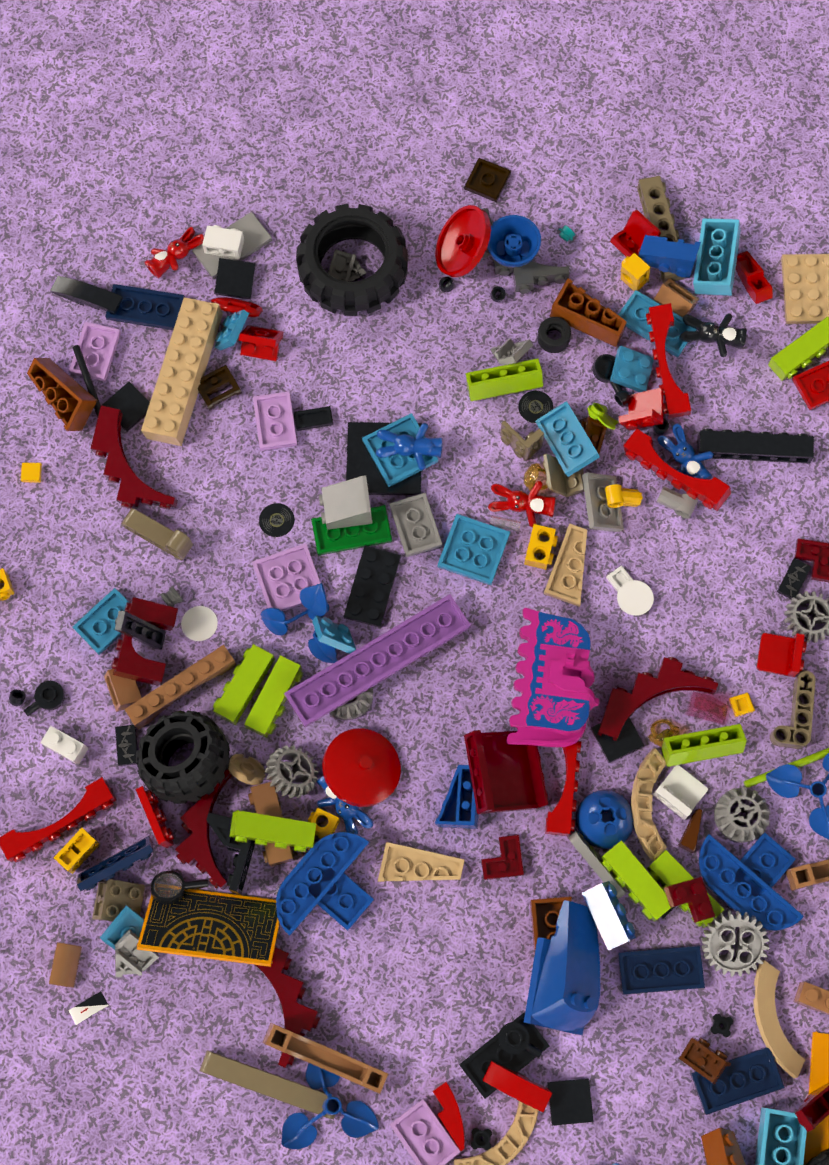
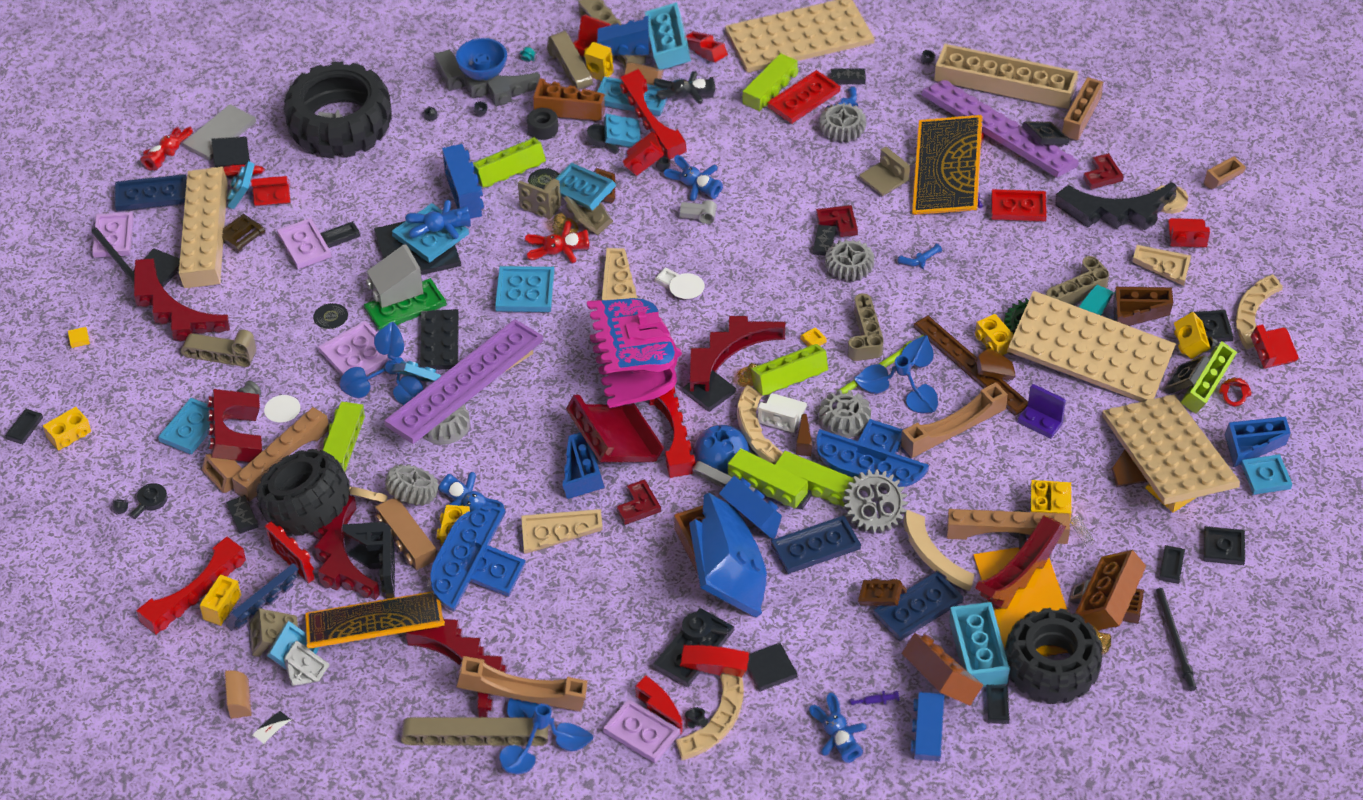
camera: 20 degrees left, 25 degrees down
(61, 391) = (98, 269): dark orange wedge -> none
(64, 745) = (180, 526): white brick -> none
(86, 294) = (89, 194): black slope -> none
(140, 630) = (228, 407): black plate -> none
(170, 887) = (326, 606): piece -> none
(223, 242) = (211, 126): white brick -> none
(272, 699) = (373, 441): lime brick -> none
(273, 830) = (409, 519): lime brick -> none
(361, 767) = (477, 466): red dish -> none
(415, 525) = (464, 284): light grey plate -> none
(450, 394) = (462, 180): none -> blue brick
(463, 241) = (435, 72): red dish -> none
(487, 180) = (441, 36): dark brown tile -> none
(505, 523) = (556, 263): clear hinge -> none
(509, 352) = (504, 143): light grey slope -> none
(537, 546) = (586, 271): yellow brick -> none
(599, 412) = (602, 163): lime plate -> none
(599, 514) = (631, 225): light grey plate -> none
(606, 259) = (563, 49): none -> dark tan beam
(619, 496) = (645, 216): yellow piece -> none
(622, 397) = (620, 153): black hinge -> none
(694, 894) = (822, 470): dark red plate -> none
(707, 708) = (780, 344): clear pink slope -> none
(709, 491) = (723, 188): red arch -> none
(727, 1022) = (888, 574): black plate -> none
(756, 446) = (755, 156): black brick -> none
(781, 654) = (835, 293): red bracket -> none

